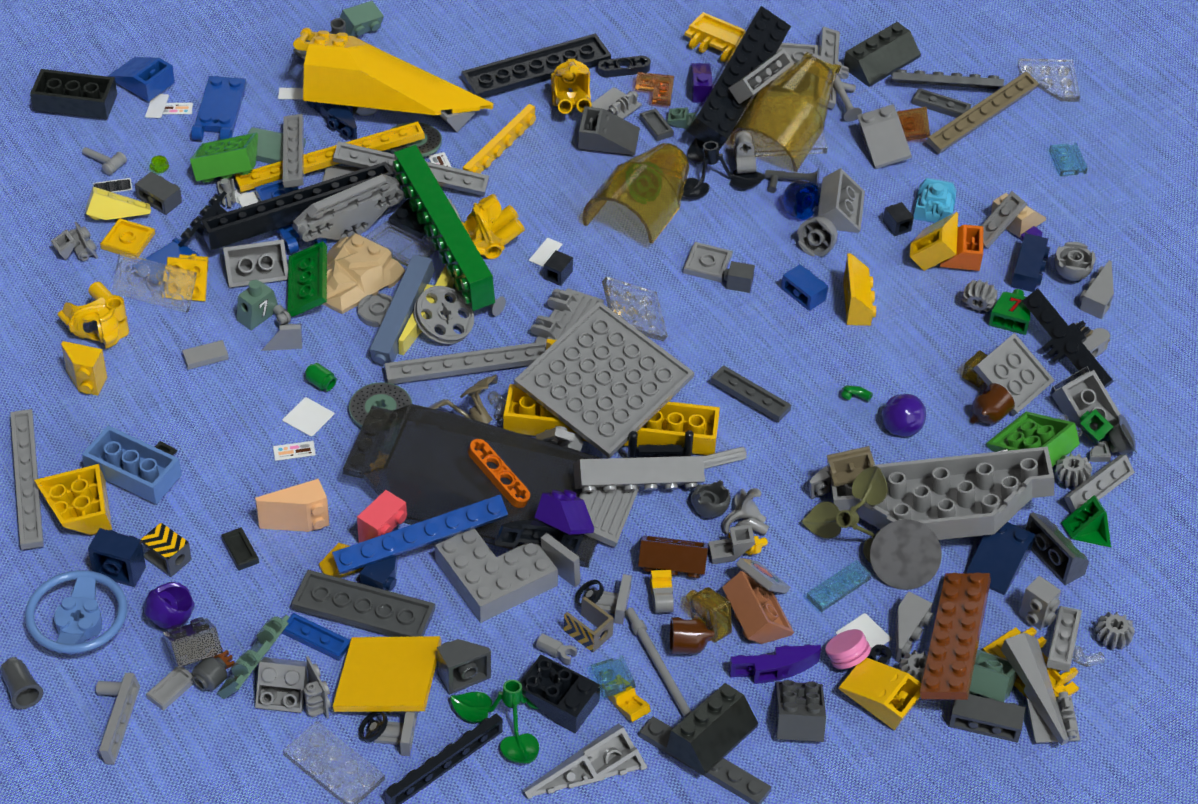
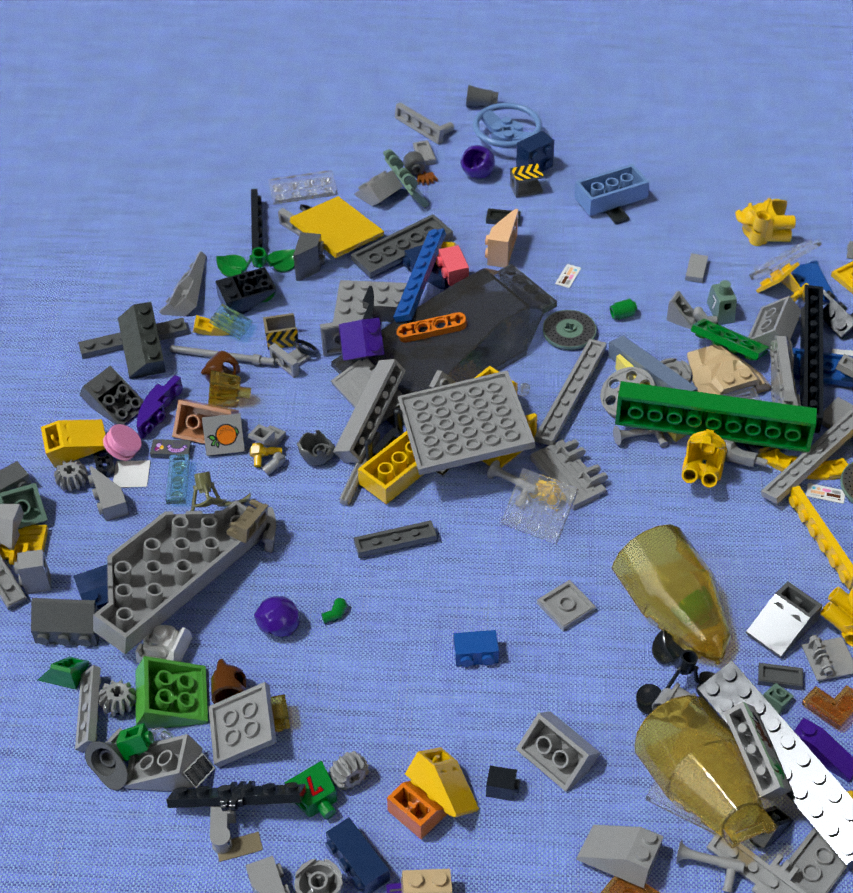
camera: 130 degrees right, 0 degrees up
(25, 473) = (645, 152): light grey plate -> none
(78, 499) = (596, 158): yellow wedge -> none
(85, 367) = (719, 196): yellow slope -> none
(192, 642) = (438, 157): clear smoke brick -> none
(308, 416) = (594, 295): white sticker -> none
(316, 637) = (401, 220): blue tile -> none
(316, 692) = (355, 191): light grey hinge -> none
(477, 412) = (514, 366): dark tan plant -> none
(545, 251) = (665, 505): white sticker -> none
(555, 648) = (292, 308): light grey bar -> none
(558, 268) = (632, 494): black brick -> none
(662, 591) = (269, 383): leg -> none
(673, 555) = (294, 405): reddish brown slope -> none
(739, 276) = (525, 609): dark grey brick -> none
(744, 508) = (290, 464): light grey piece -> none
(782, 175) = (608, 751): dark grey piece -> none
(801, 199) = (584, 711): clear blue cylinder -> none
(810, 620) = (165, 448): none -> dark grey tile
(817, 236) = (526, 696): light grey cylinder -> none
(858, 293) = (433, 675): yellow slope -> none
(905, 554) = (152, 516): flat silver sticker -> none
(934, 200) = (499, 837): medium azure brick -> none
(955, 636) = (63, 499): dark orange plate -> none
(1002, 218) = (422, 858): light grey tile -> none

